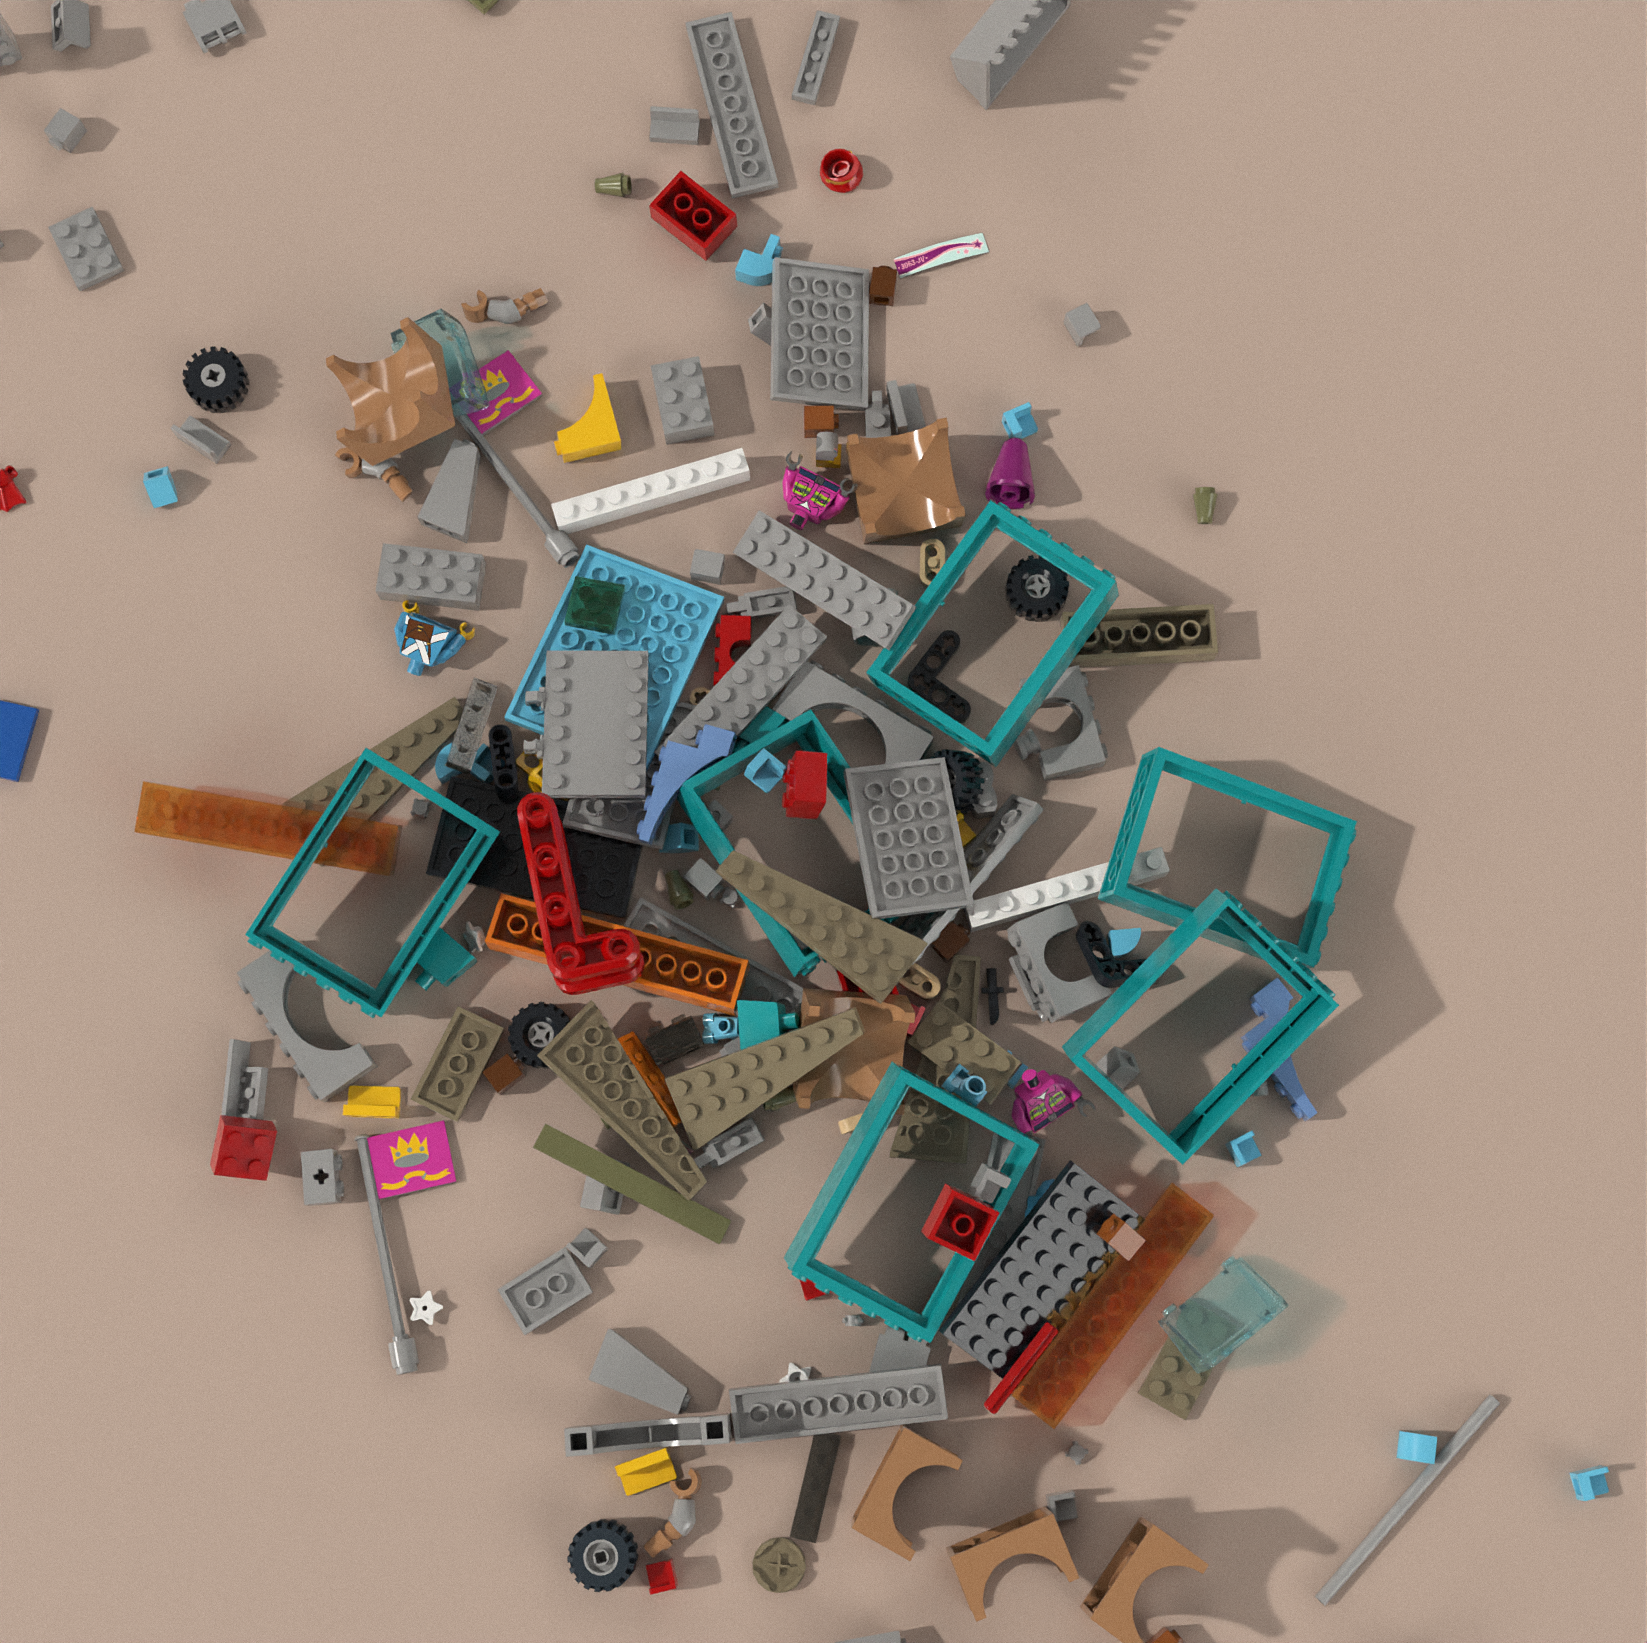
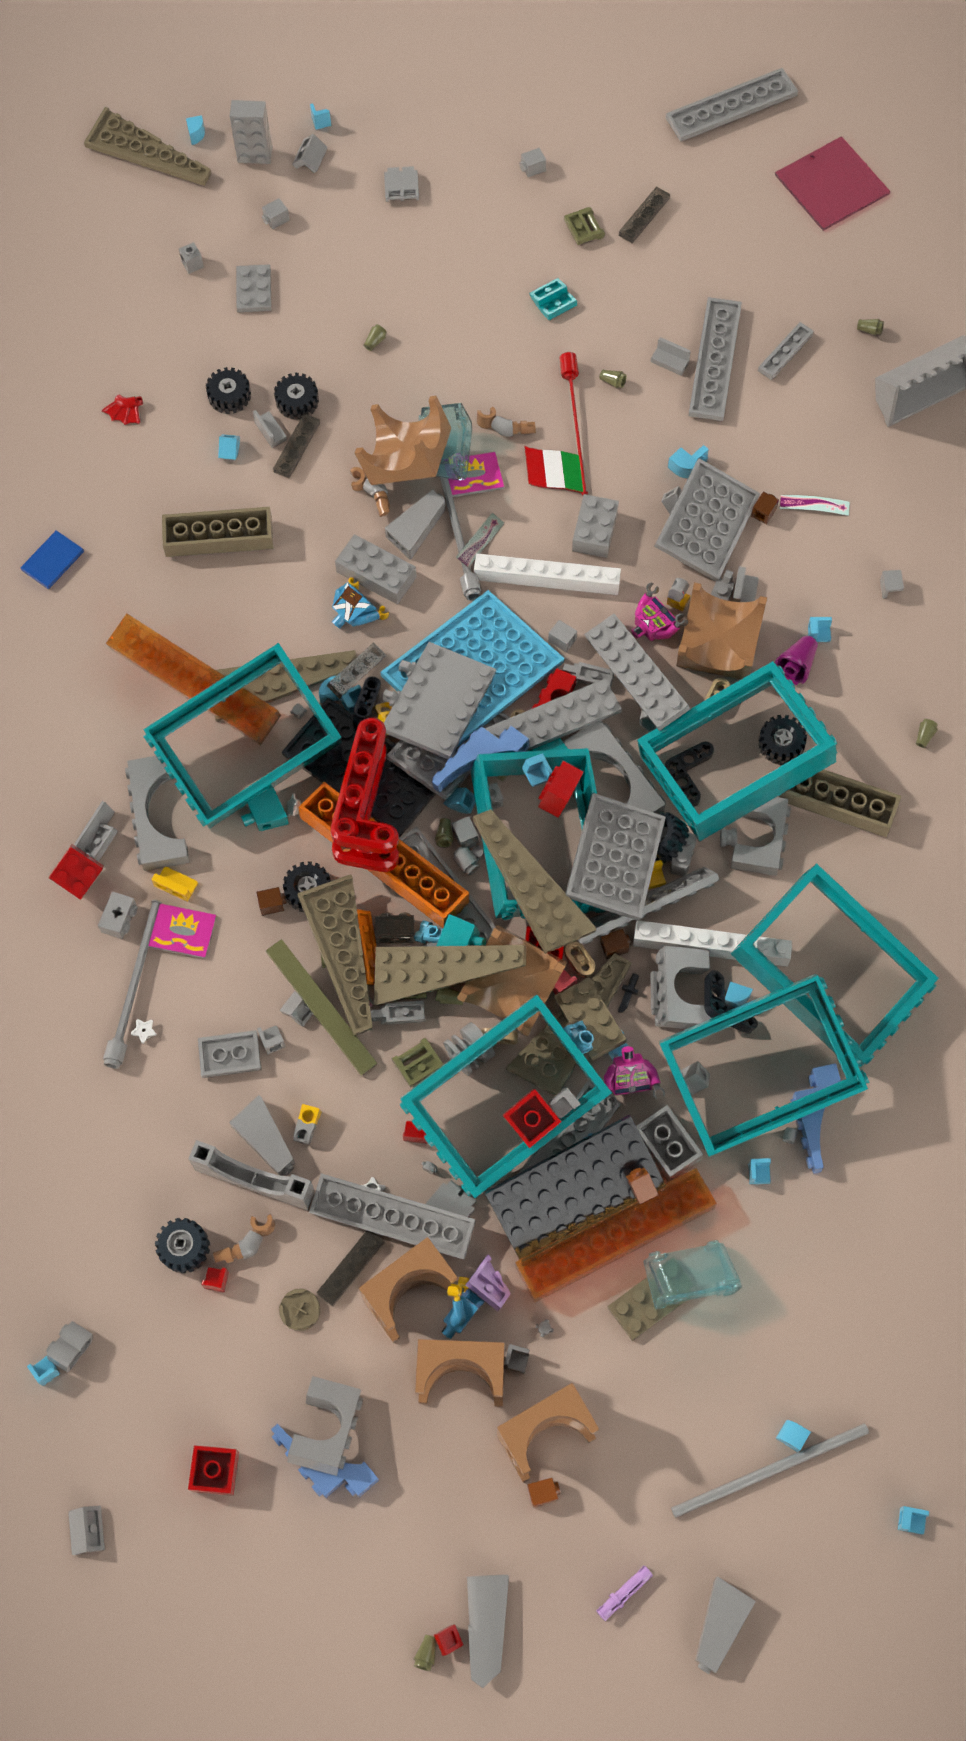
camera: 25 degrees right, 10 degrees down
(131, 417) = (233, 397): none -> black wheel
(202, 613) = (217, 531): none -> dark tan brick
(248, 449) = (296, 445): none -> clear smoke plate
(280, 253) = (375, 336): none -> olive cone
(458, 1064) = (242, 881): dark tan plate -> none
(487, 104) = (553, 299): none -> teal slope
(544, 482) = (480, 540): none -> clear smoke sticker
(594, 432) = (526, 522): yellow arch -> none
(594, 605) = (474, 627): clear green plate -> none
(596, 339) = (559, 468): none -> flag
(646, 1471) = (239, 1203): yellow panel -> none
(681, 1335) = (306, 1124): none -> leg
(693, 215) = (657, 415): red brick -> none
(721, 914) = (466, 860): none -> light grey brick
(786, 1202) = (421, 1067): none -> olive plate
(819, 419) = (683, 571): dark orange brick -> none
(834, 1143) = (469, 1034): none -> light grey wheel
(841, 170) = (770, 426): red piece -> none
(976, 1478) = (463, 1308): none -> dark azure torso
(988, 1432) = (488, 1284): none -> lavender wing
(1020, 1368) = (530, 1247): red axle -> none
(1124, 1165) = (669, 1143): none -> light grey brick

